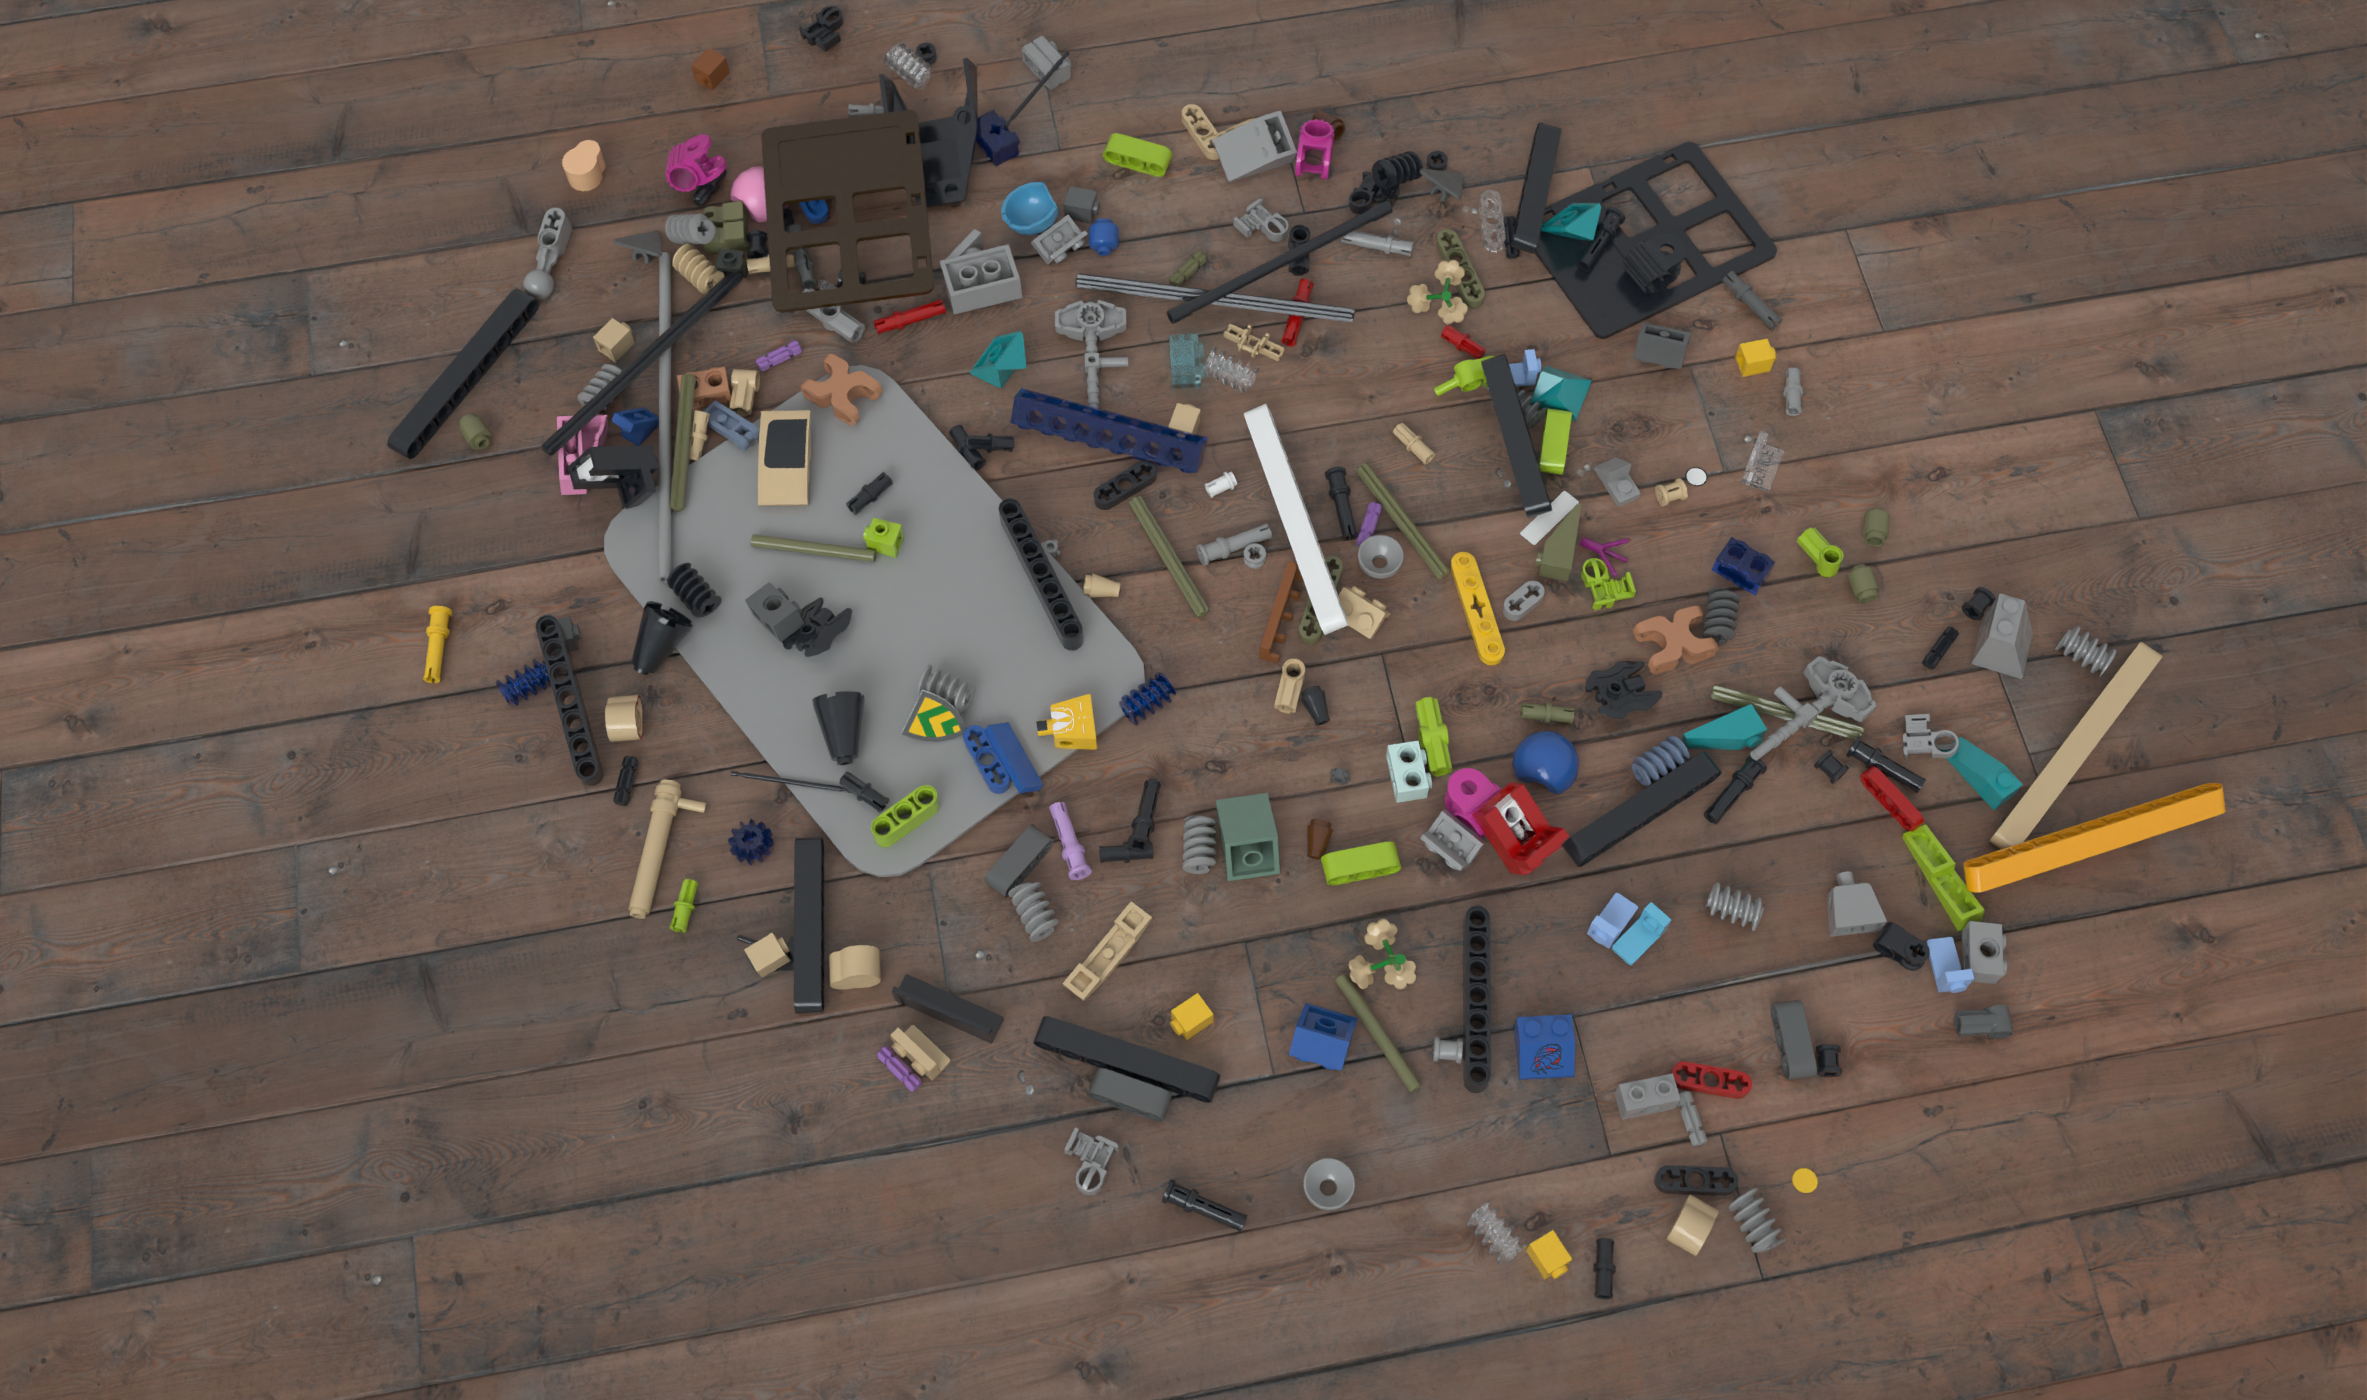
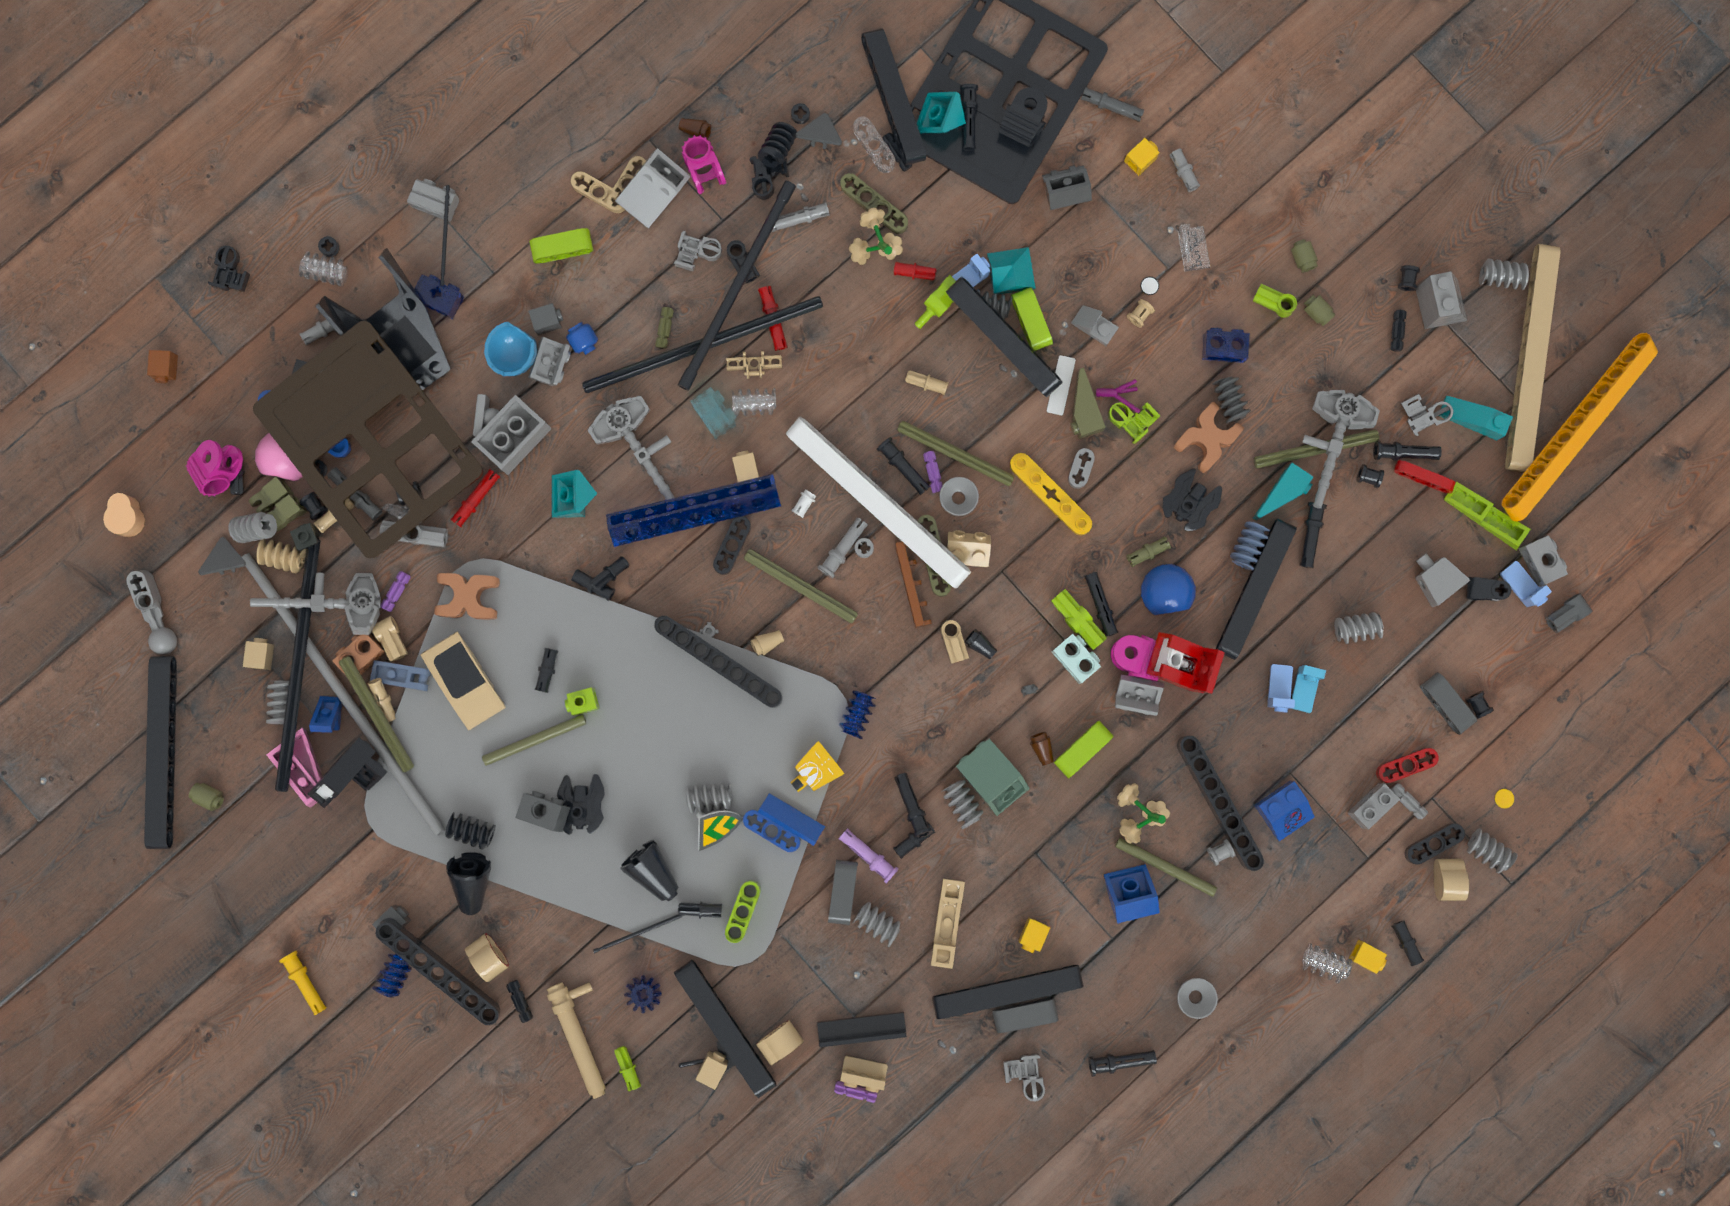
camera: 30 degrees left, 20 degrees up
(734, 347) = (360, 605): none -> light grey bar
(1466, 734) = (1101, 604): none -> black pin

